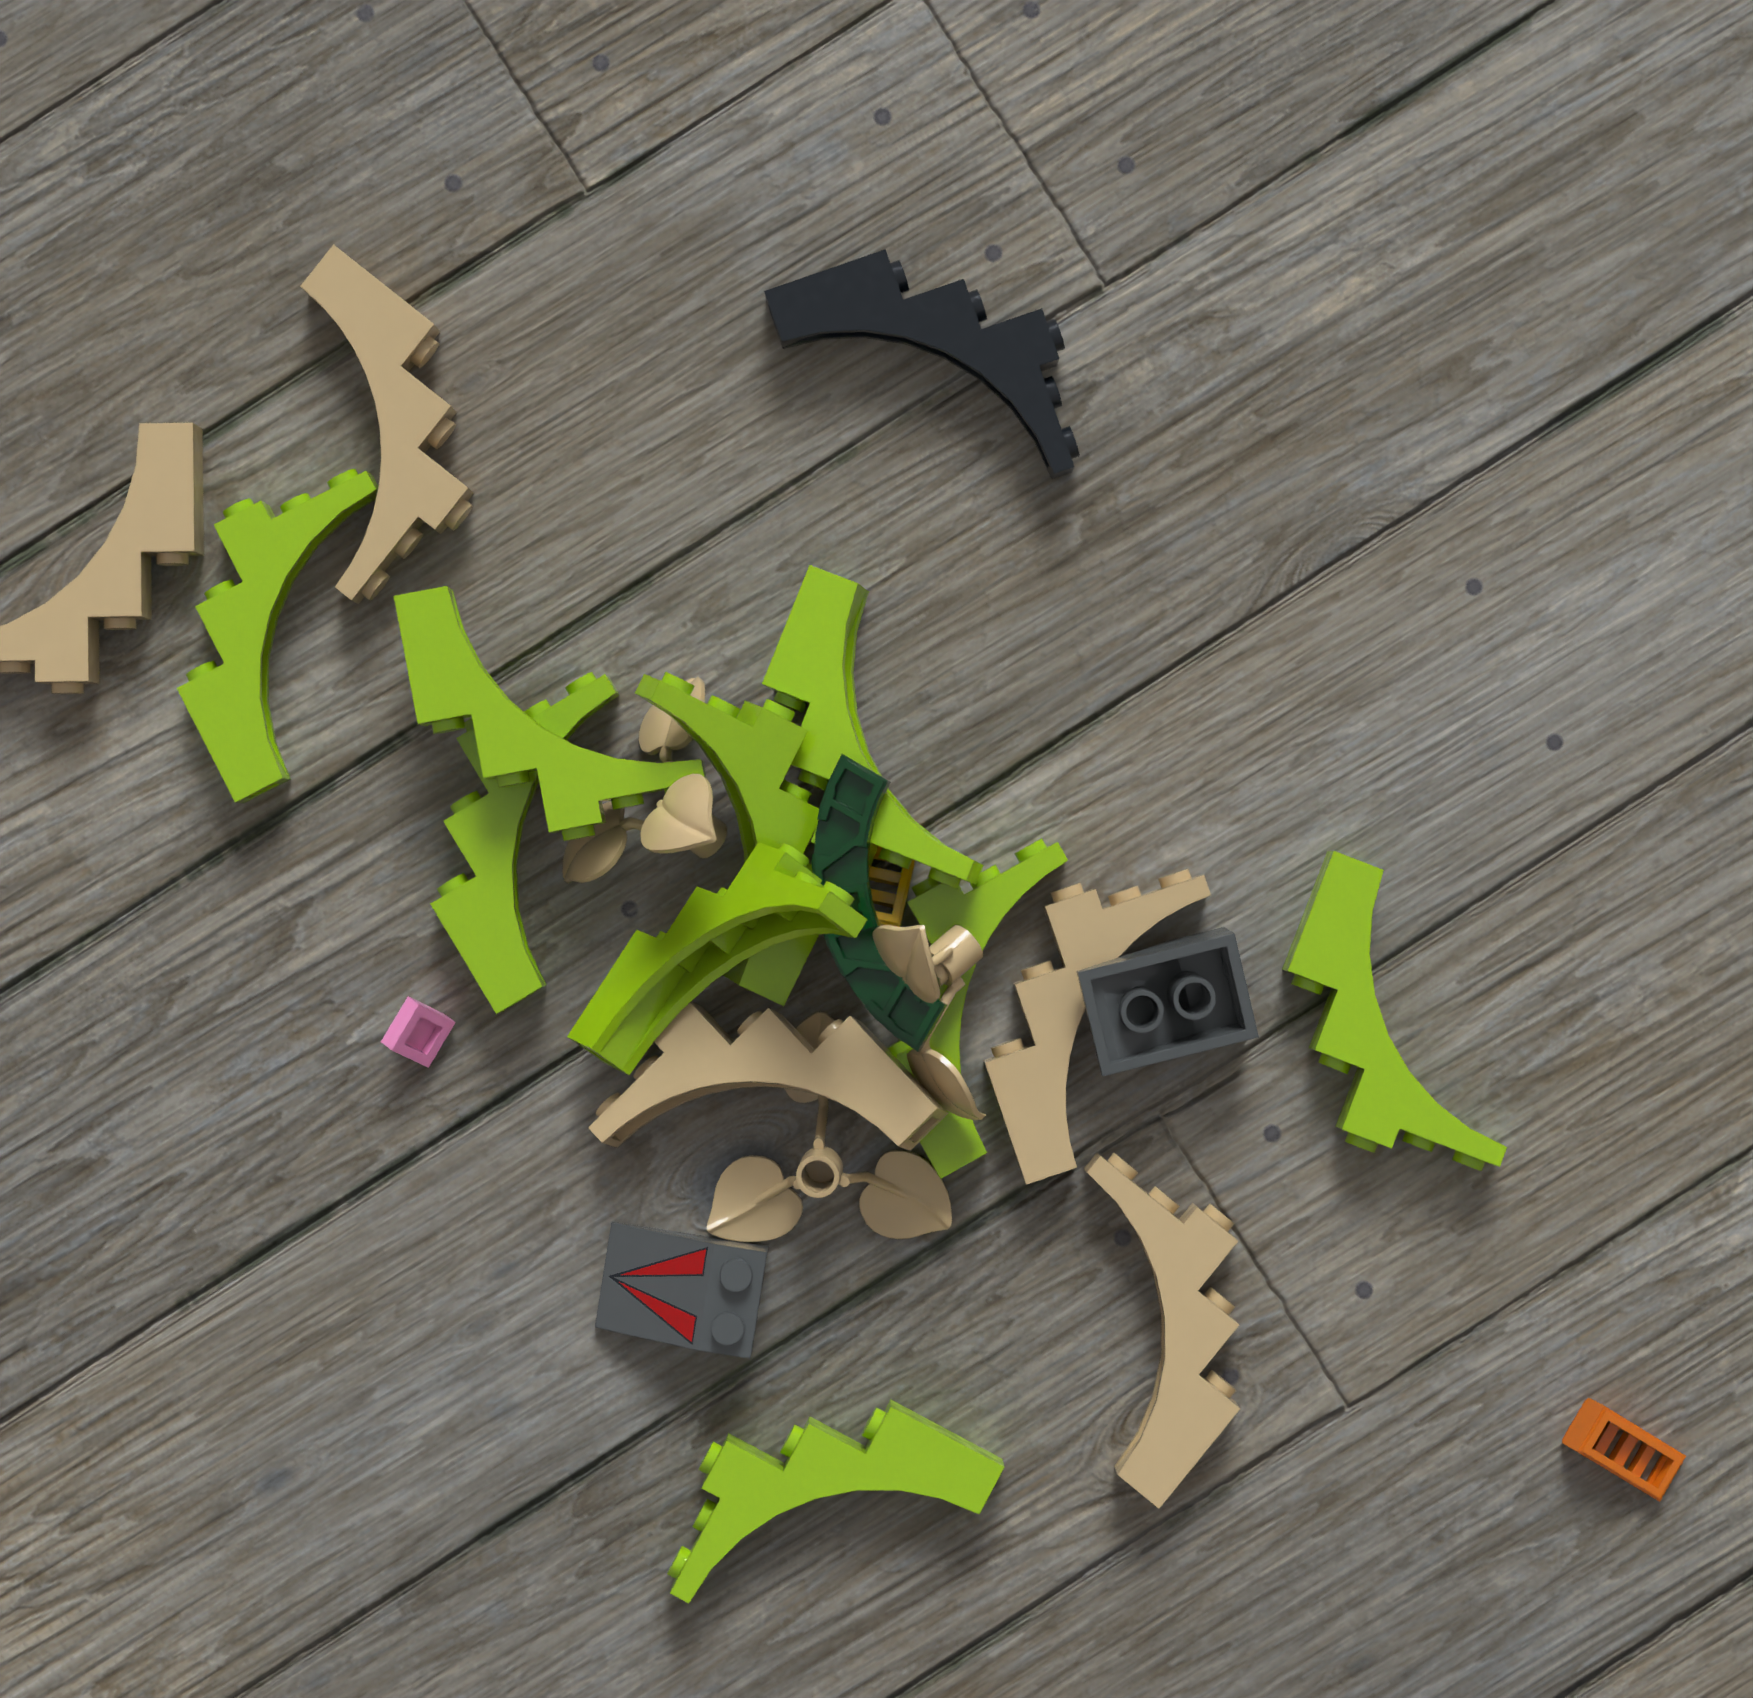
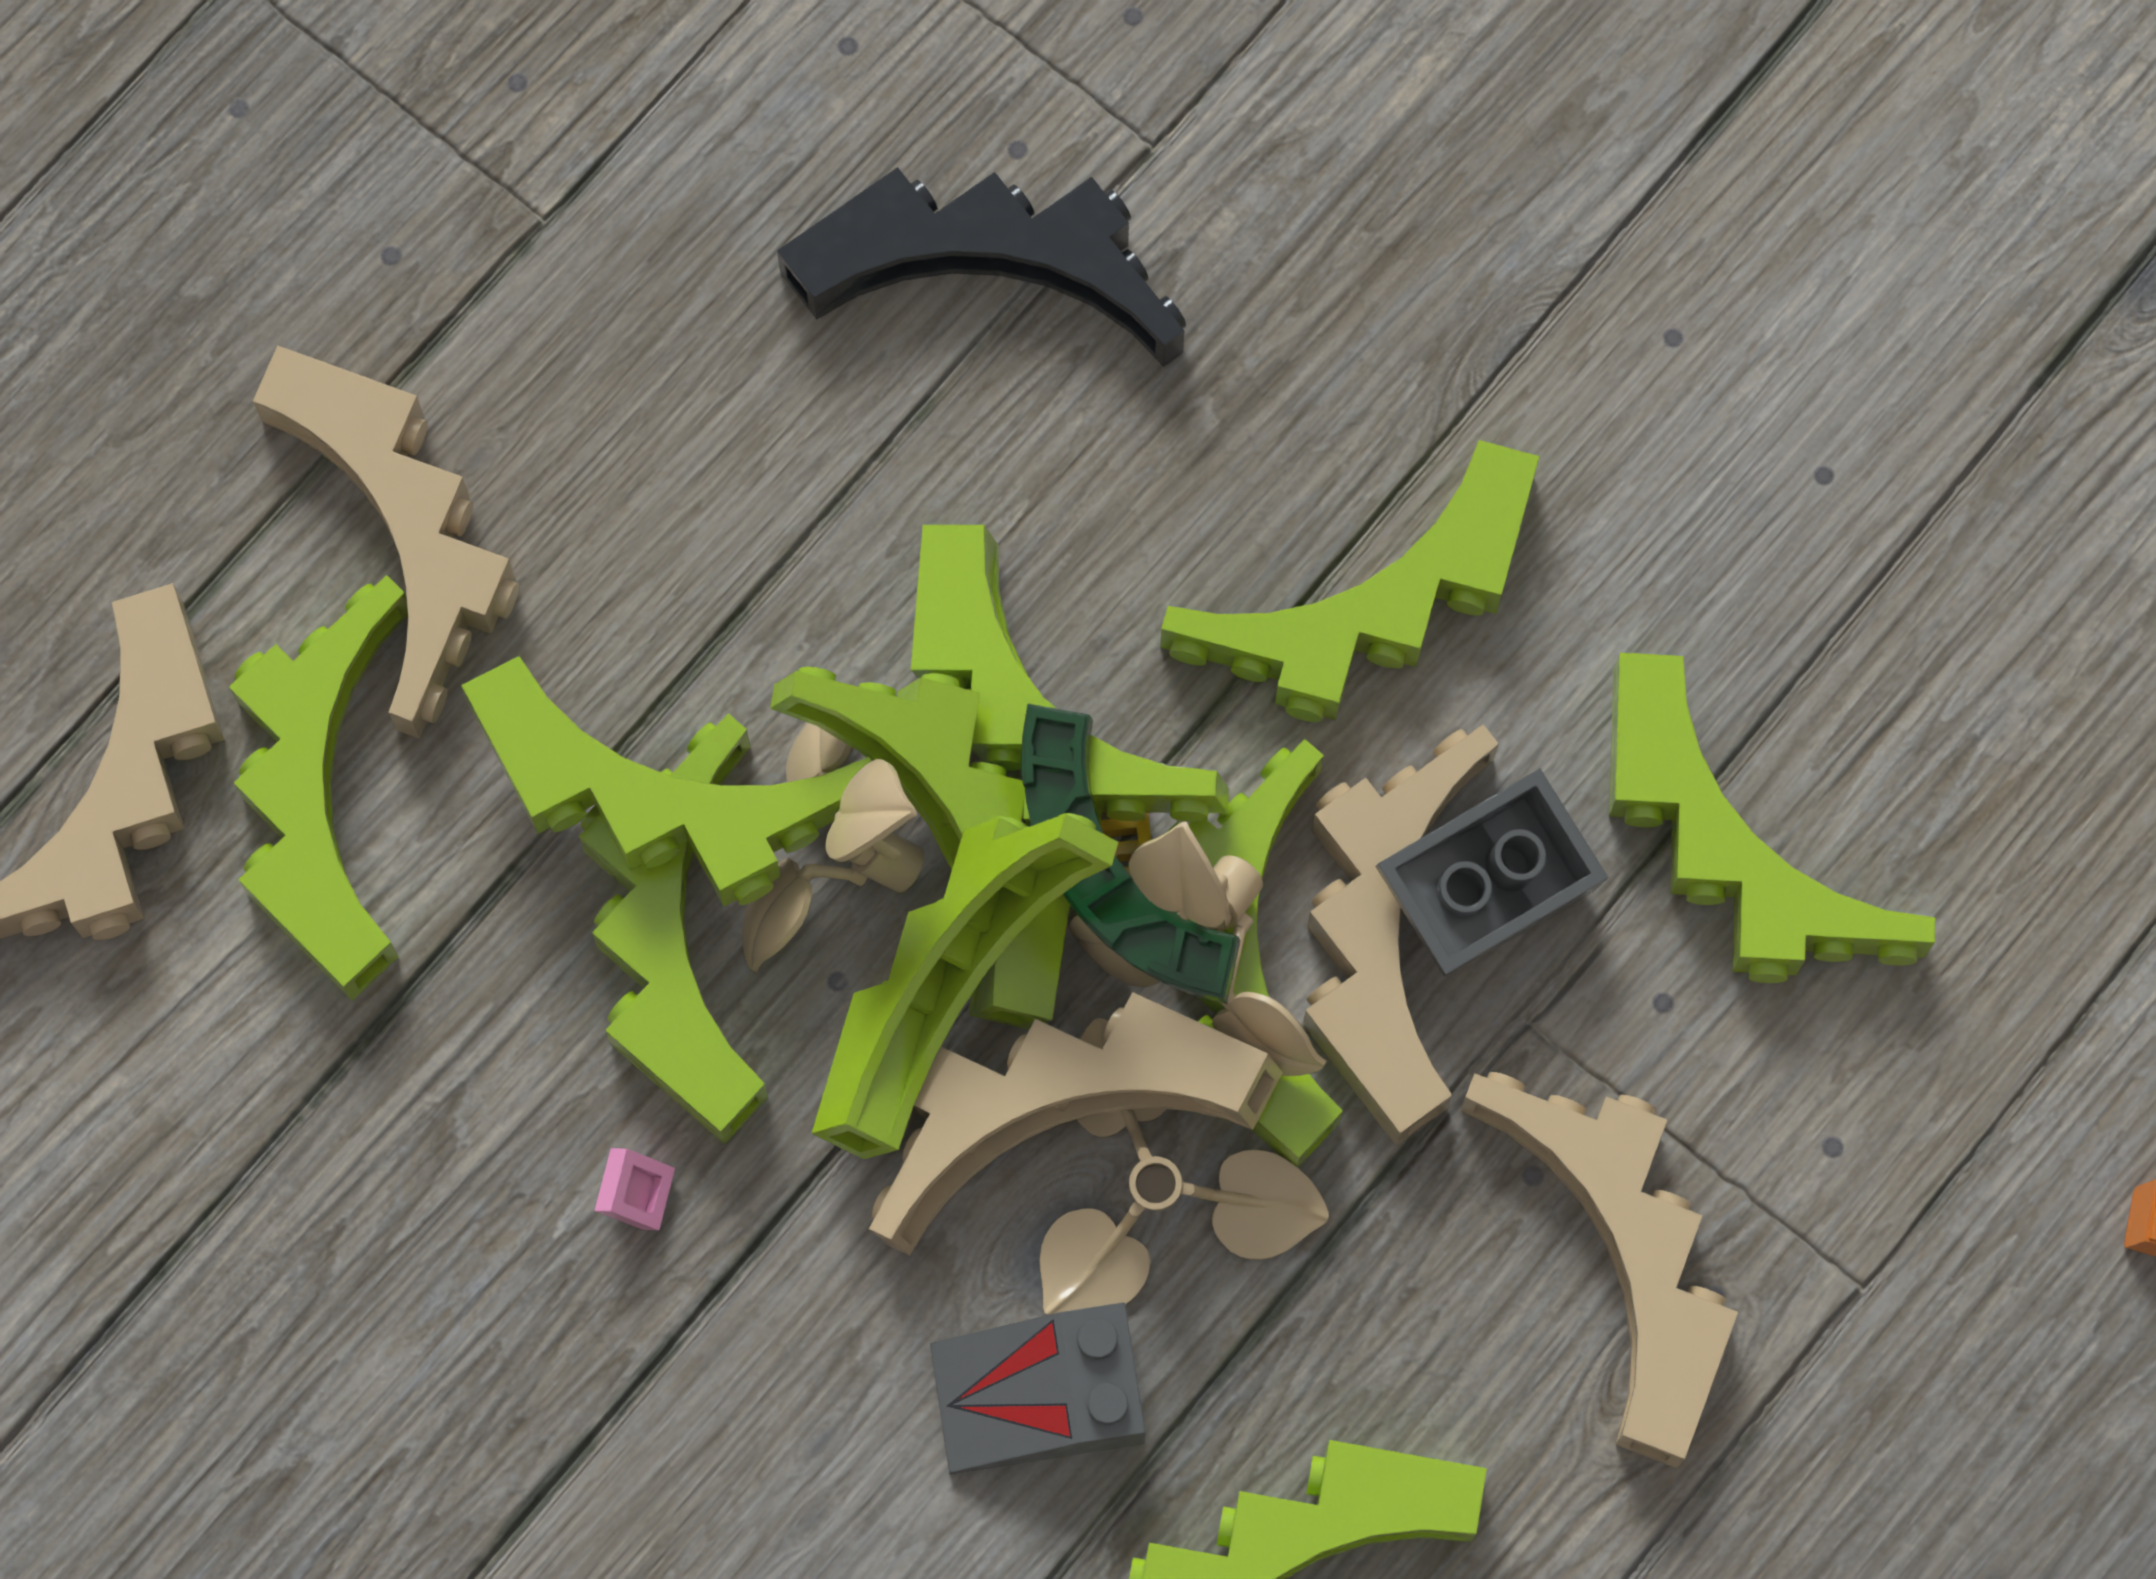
camera: 15 degrees left, 15 degrees down
(1091, 764) = (1387, 616): none -> lime arch

